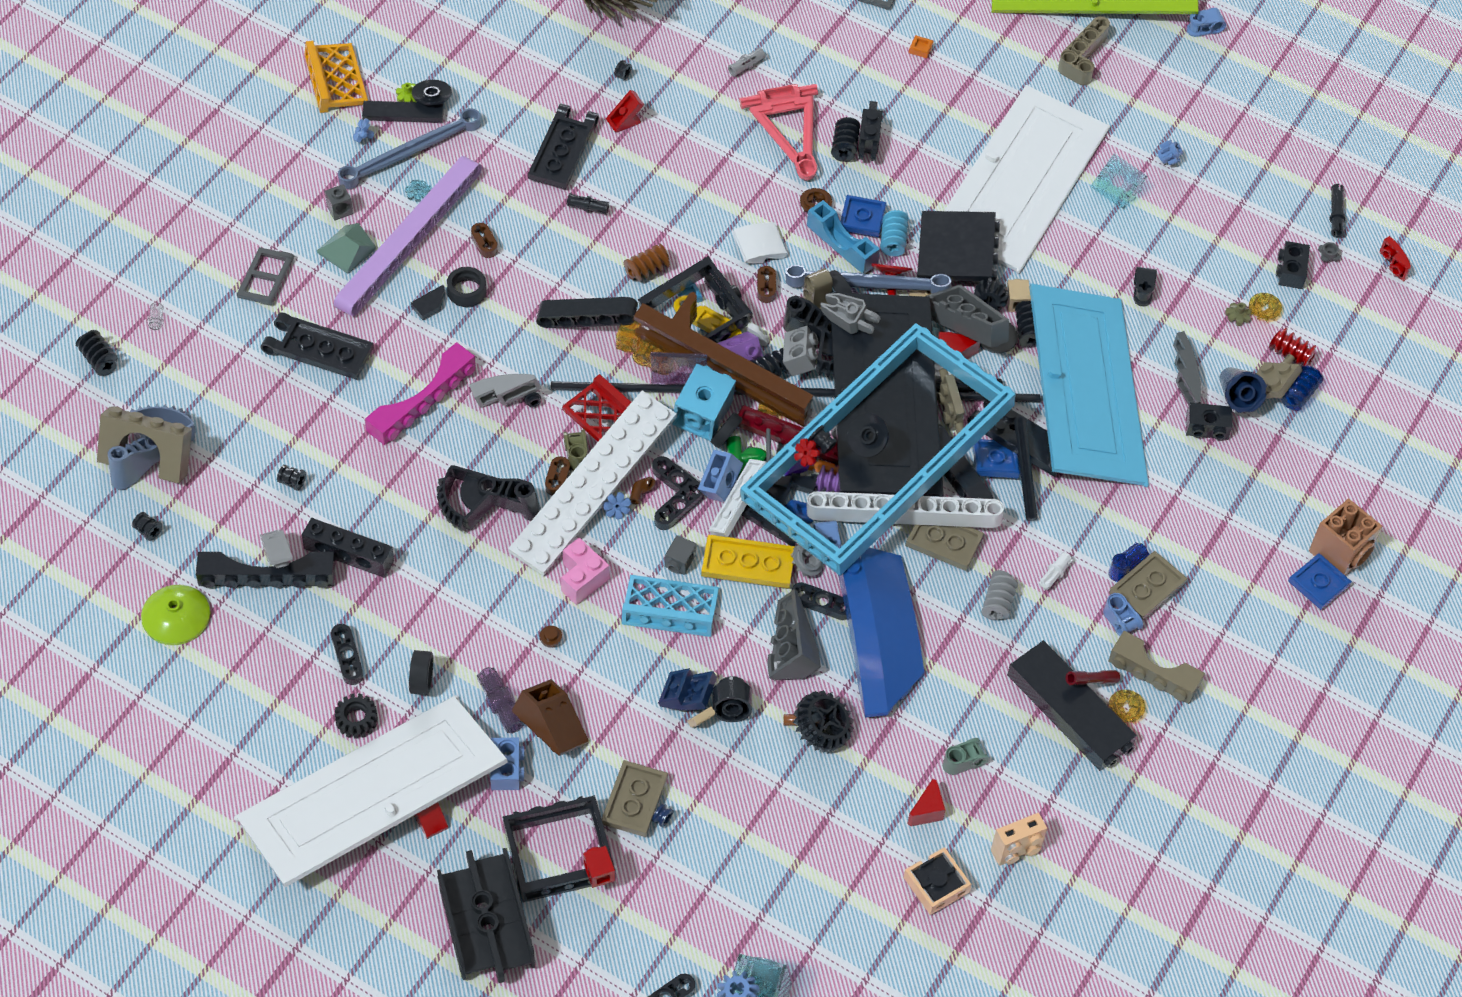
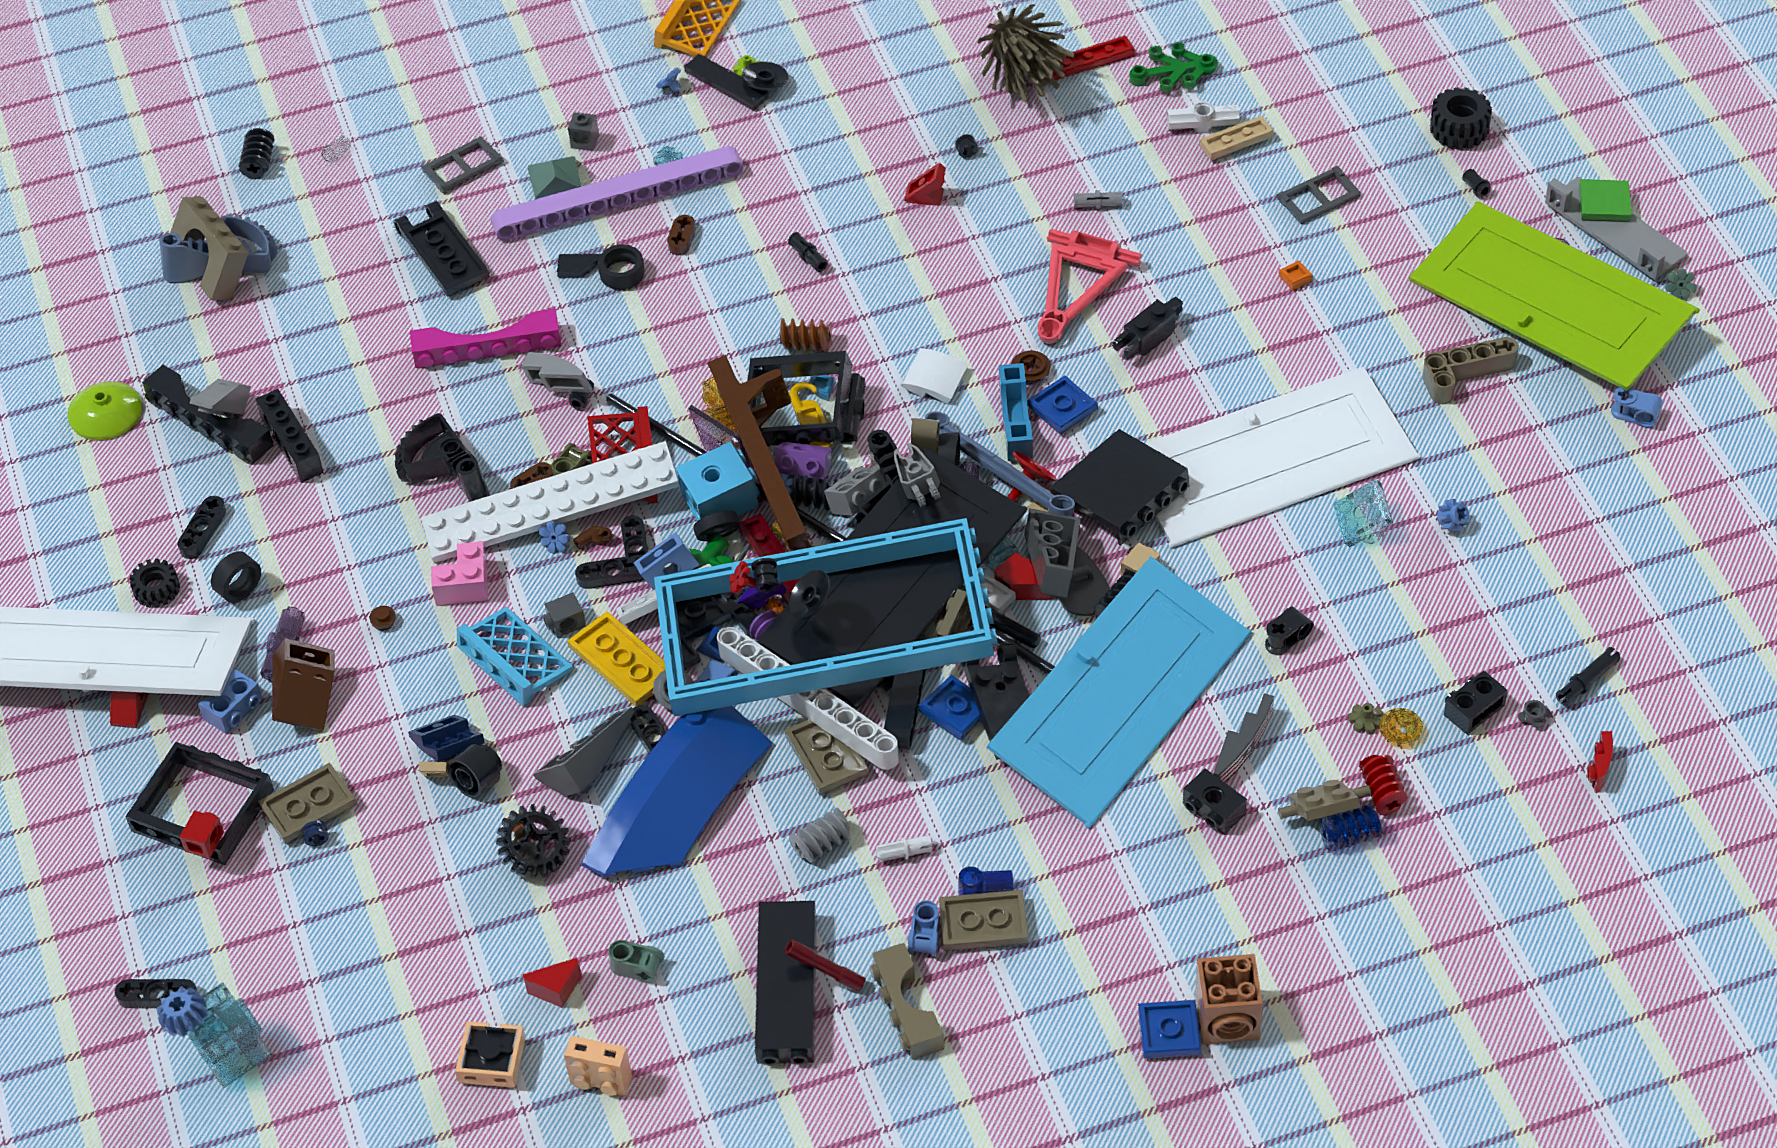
camera: 45 degrees right, 5 degrees down
(147, 526) = (152, 321): black bush -> none
(291, 477) = (306, 348): black bush -> none
(409, 148) = (698, 117): sand blue piece -> none
(493, 883) = (75, 817): black piece -> none
(562, 148) = (837, 187): black hinge -> none
(586, 312) = (694, 343): black beam -> none
(754, 329) = (840, 459): white tile -> none
(769, 284) = (899, 415): reddish brown beam -> none
(845, 139) = (1112, 322): black piece -> none
(894, 233) = (1074, 436): medium azure piece -> none
(992, 293) = (1107, 548): black gear -> none
(1025, 468) = (968, 731): black axle -> none
(1135, 702) = (842, 1008): clear yellow gear -> none
(1243, 389) = (1268, 786): dark blue cone -> none

